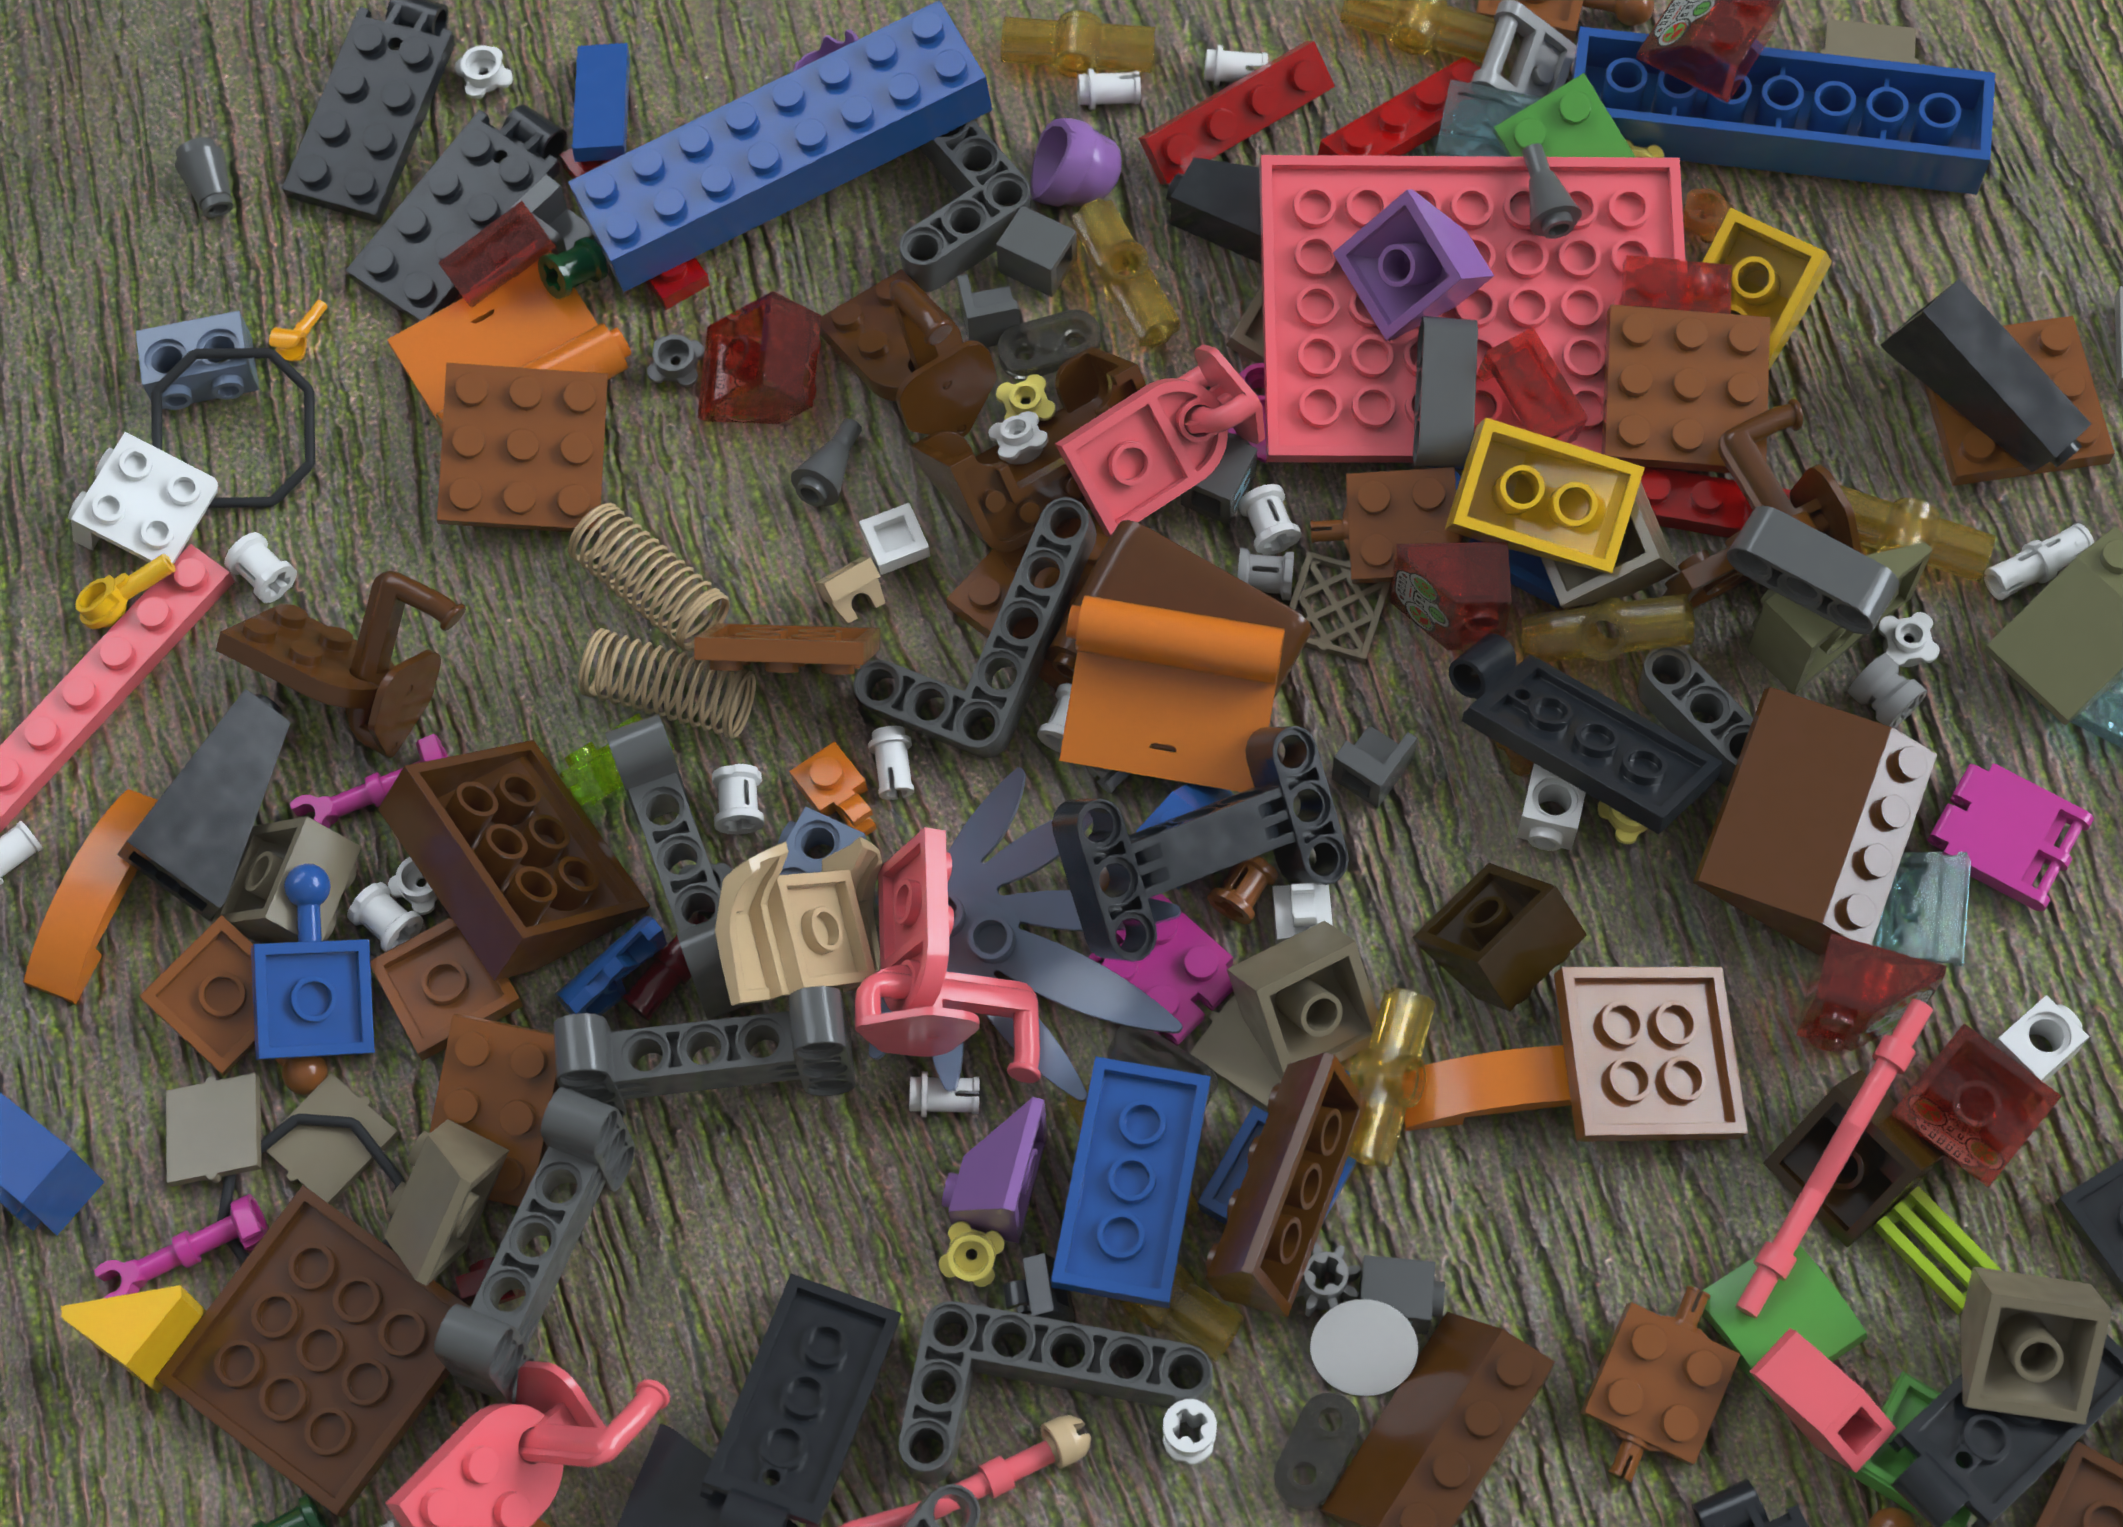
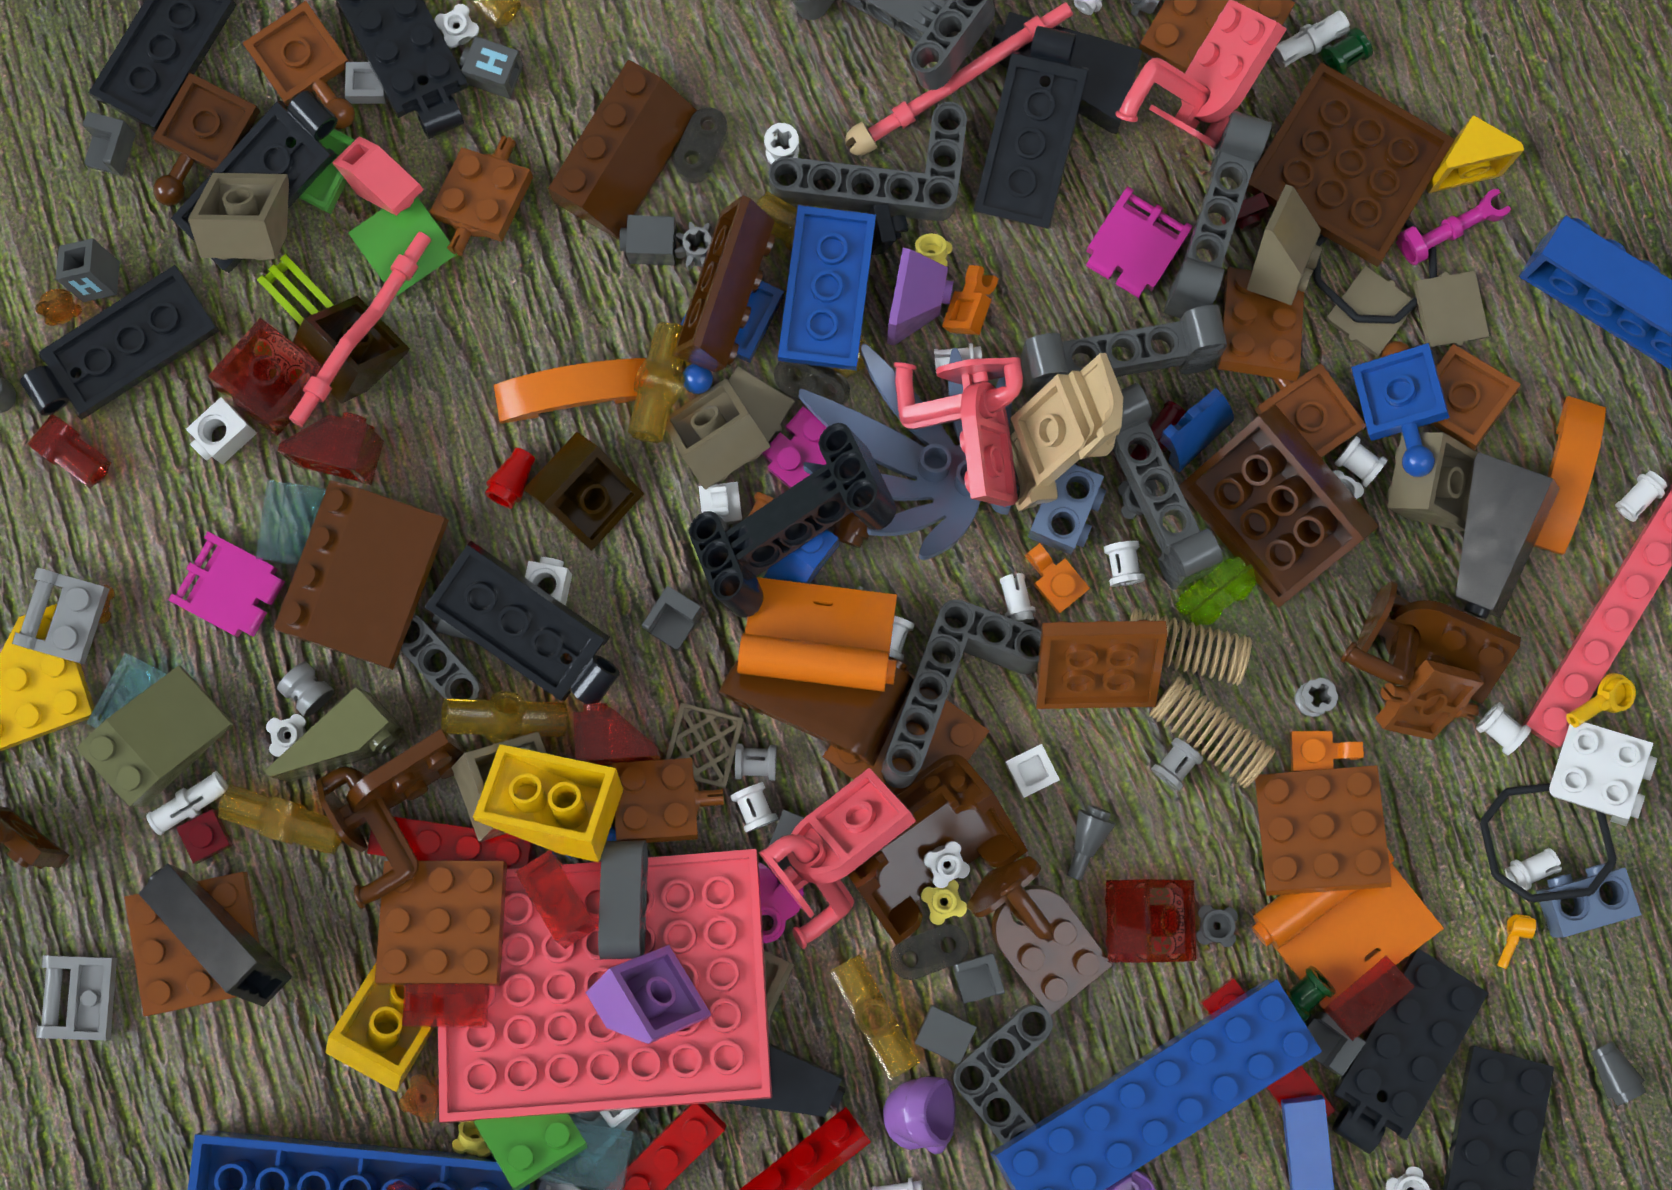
camera: 175 degrees right, 15 degrees up
(258, 404) = (1533, 868): none -> white pin
(348, 588) = (1430, 700): none -> dark orange plate
(374, 790) = (1346, 578): dark pink piece -> none
(502, 616) = (1304, 700): none -> light grey bush
(511, 559) = (1317, 751): none -> orange plate
(661, 1250) = (1135, 244): none -> dark pink plate
(702, 543) = (1177, 764): none -> light grey bush
(846, 582) = (1063, 738): tan tile -> none
(923, 1165) = (969, 307): none -> orange plate
(1364, 1347) = (671, 202): white sticker -> none
(1551, 206) = (542, 1066): dark grey cone -> none
(1611, 945) = (508, 482): none -> red cone
(1649, 1054) = (482, 406): plate -> none
(1813, 569) = (352, 738): dark grey beam -> none
(2014, 523) = (204, 836): none -> dark red plate

